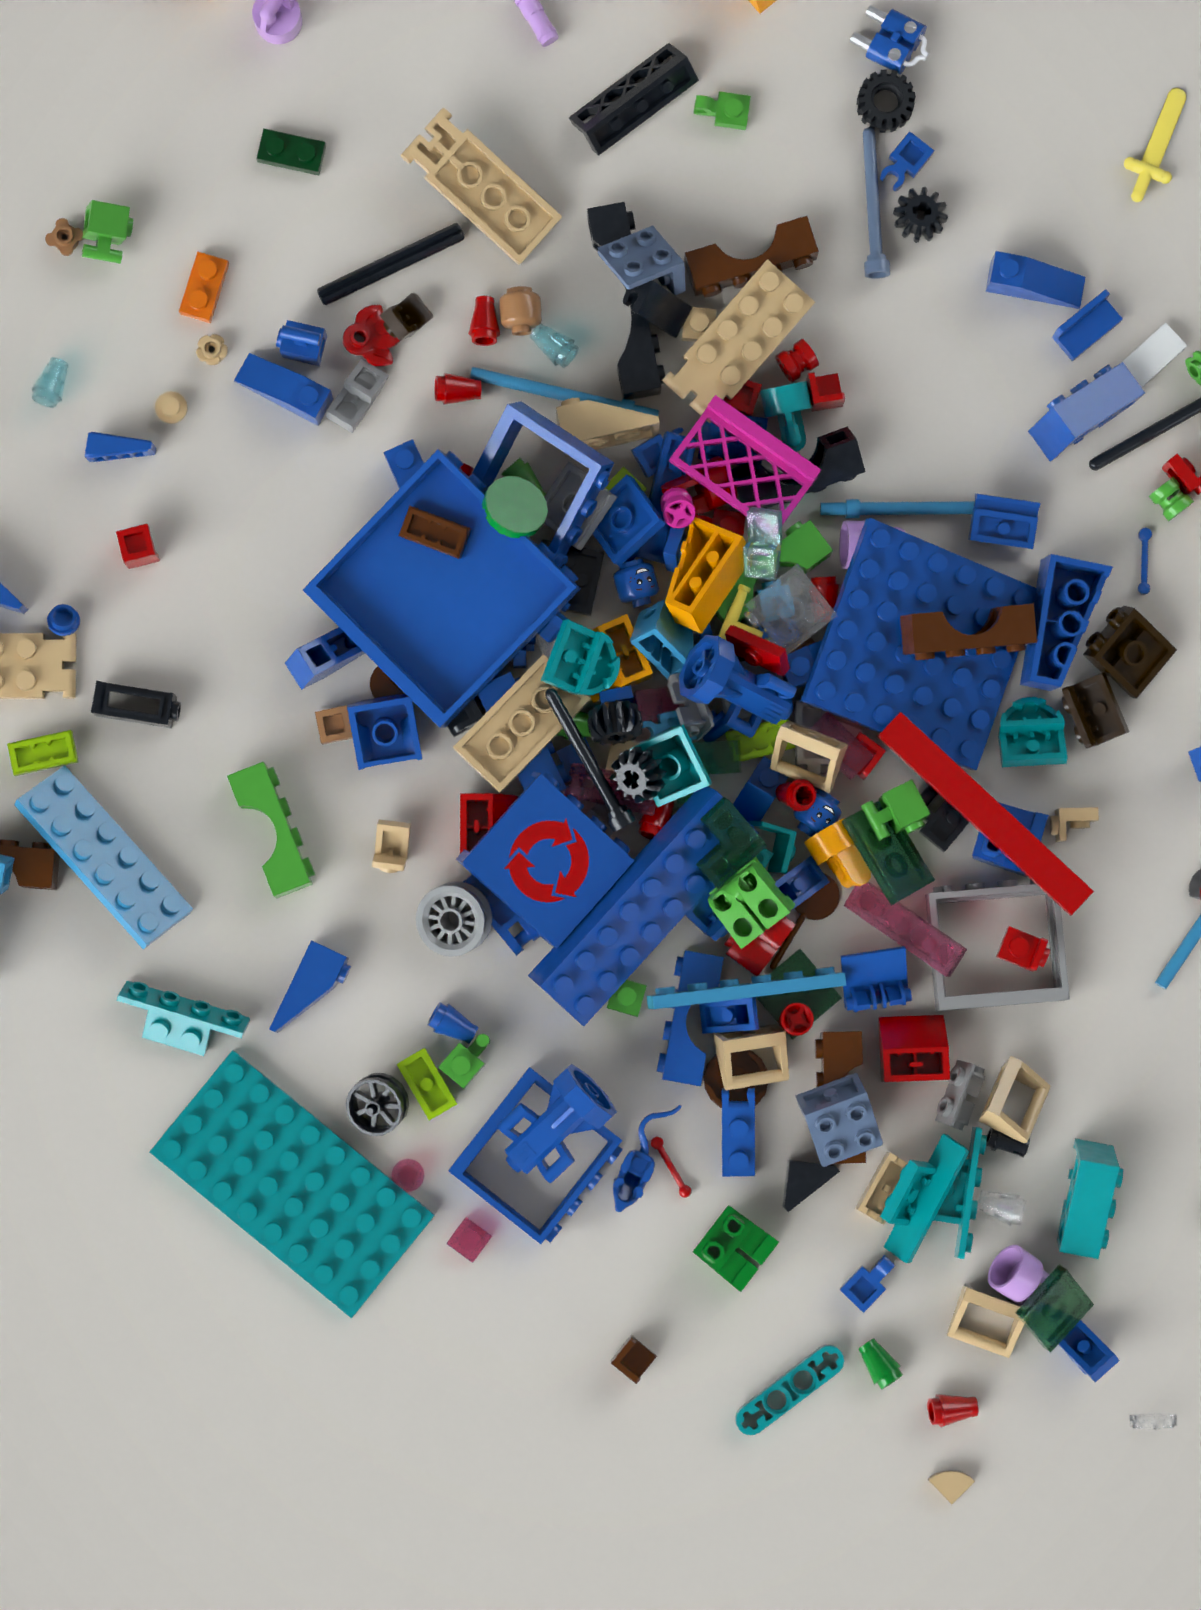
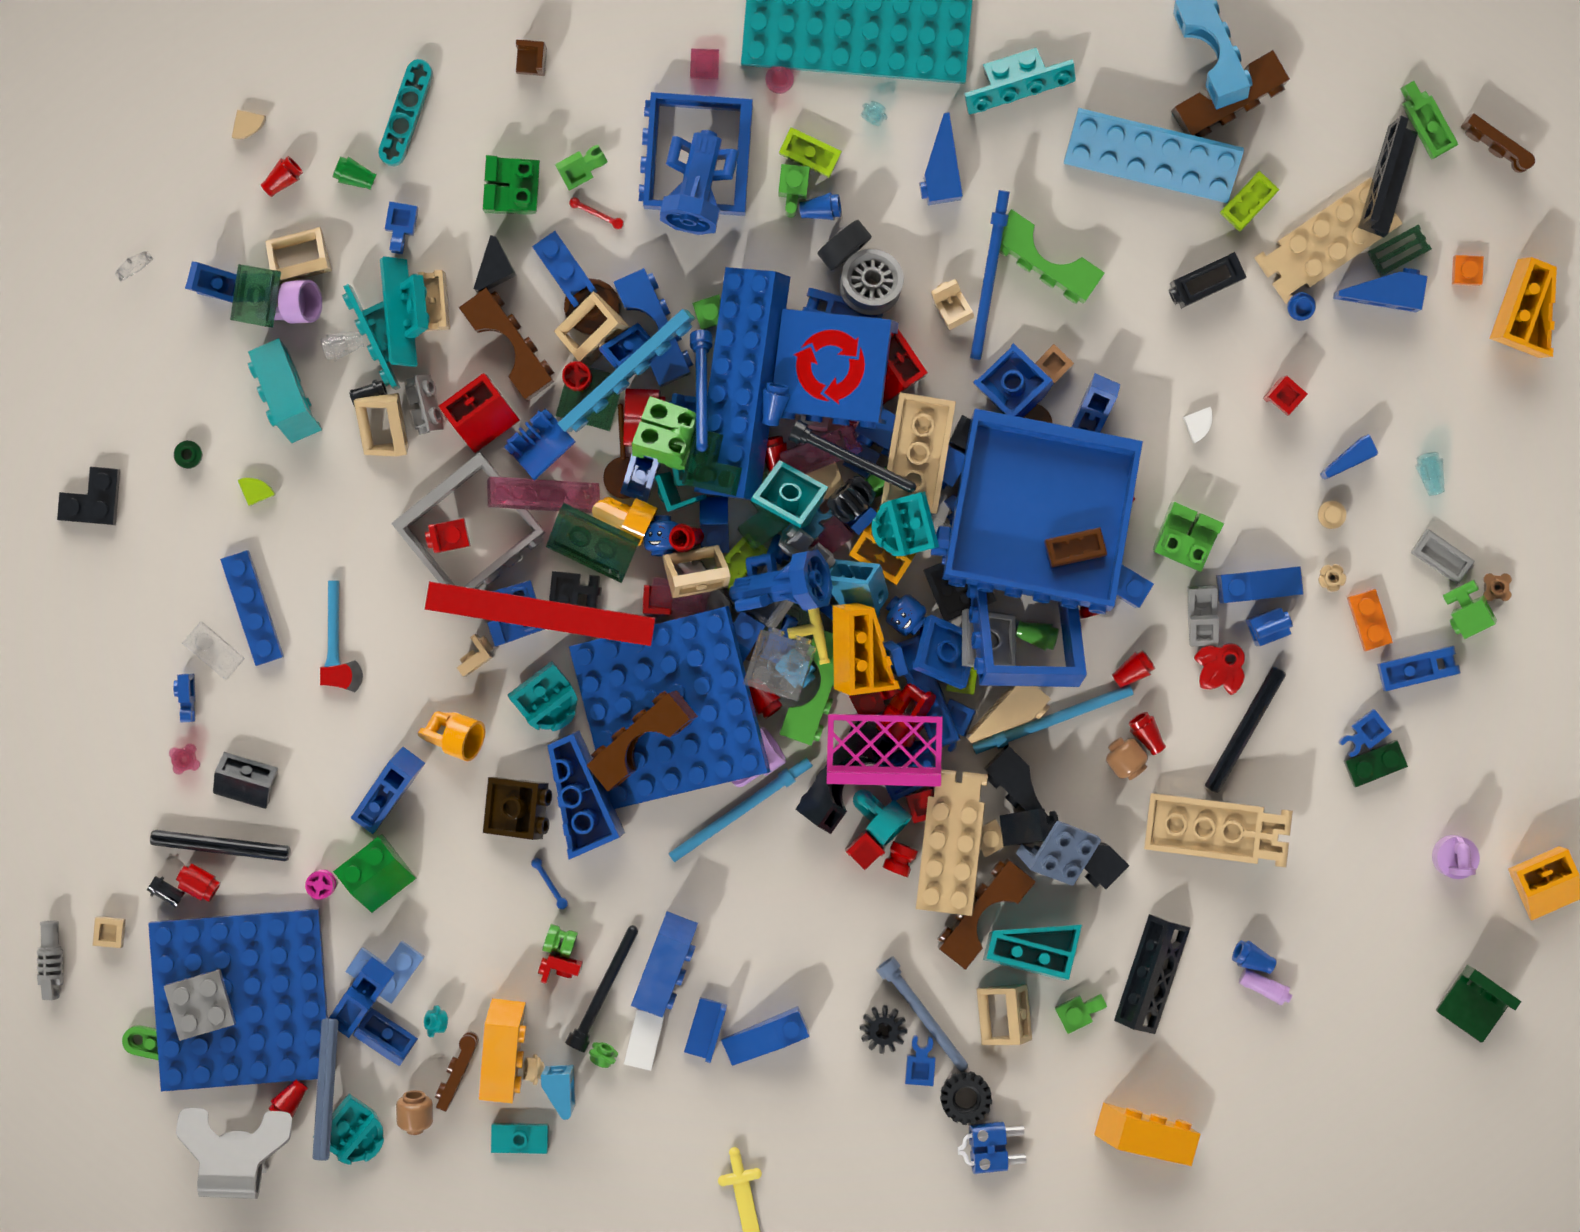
camera: 150 degrees right, 5 degrees up
(95, 299) = (1442, 556): none -> light grey tile
(191, 211) = (1417, 668): none -> blue plate
(236, 576) = (1199, 423): none -> white tile
(276, 185) = (1368, 731): none -> blue plate
(294, 891) = (999, 220): none -> blue bar
(321, 478) = (1186, 549): none -> bright green hips
(340, 1080) = (874, 113): none -> clear light blue plate
(377, 1104) = (835, 114): black wheel -> none
(406, 317) = (1206, 696): dark brown bracket -> none
(455, 970) = (844, 244): none -> black tyre
(515, 507) = (1029, 601): green tile -> none
(530, 51) = (1252, 957): none -> blue cone
(556, 346) = (1084, 750): clear light blue cone -> none
(625, 863) = (774, 402): none -> blue cone
(636, 1168) = (619, 193): blue animal -> none
(638, 774) = (808, 471): black gear -> none
(656, 971) = (701, 344): none -> blue piece
(660, 1220) = (577, 169): none -> bright green plate
(681, 515) = (906, 683): dark pink wheel -> none
(727, 191) = (1035, 950): none -> teal wedge
(758, 650) = (783, 620): red plate -> none
(764, 543) = (831, 701): clear light blue slope -> none
(785, 144) = (1017, 1013): none -> tan tile
(840, 1119) = (498, 324): sand blue bracket -> none
(901, 808) = (603, 579): bright green brick -> none
(1004, 521) = (670, 842): blue plate -> none
(1094, 711) = (512, 746): dark brown bracket -> none
(1138, 752) = (461, 737): none -> light orange piece
(1178, 1123) = (255, 490): none -> lime tile

